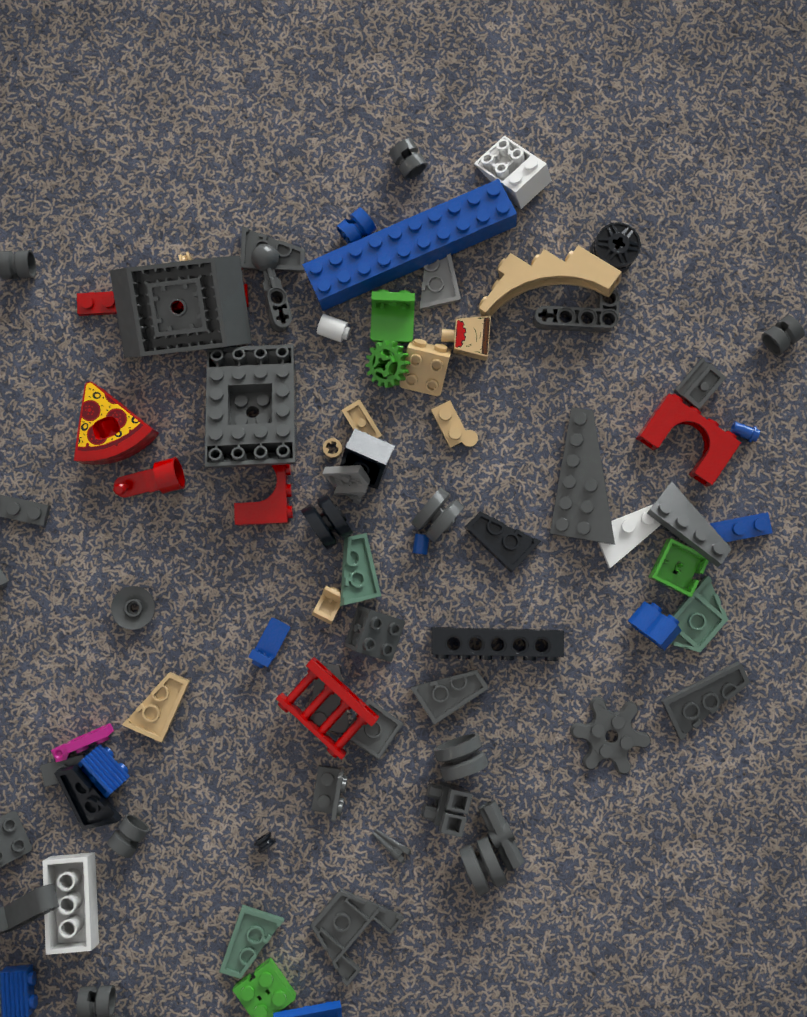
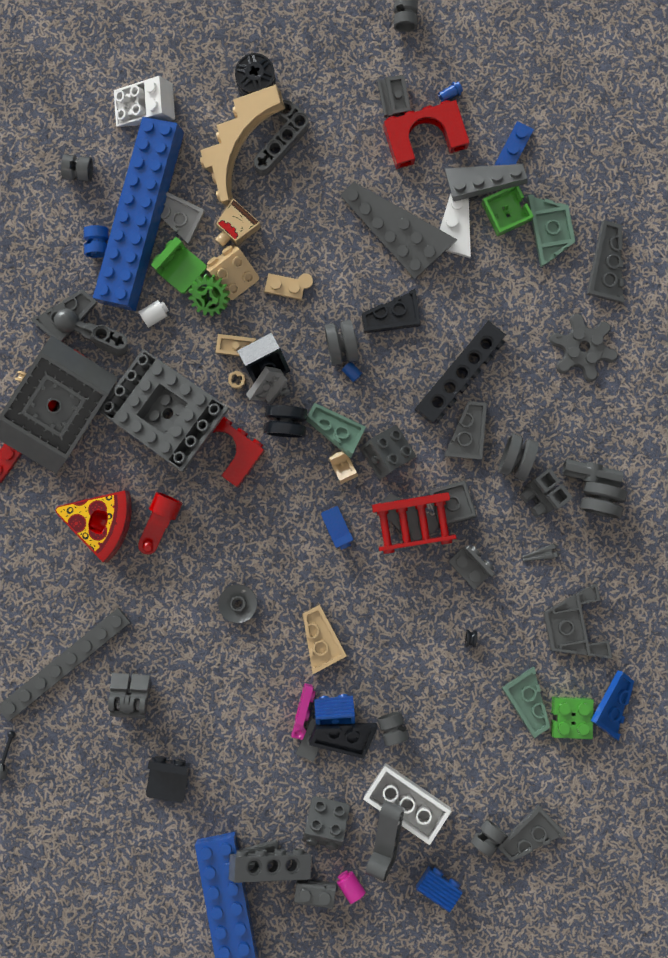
camera: 50 degrees left, 0 degrees up
(655, 625) = (533, 256): blue brick -> none

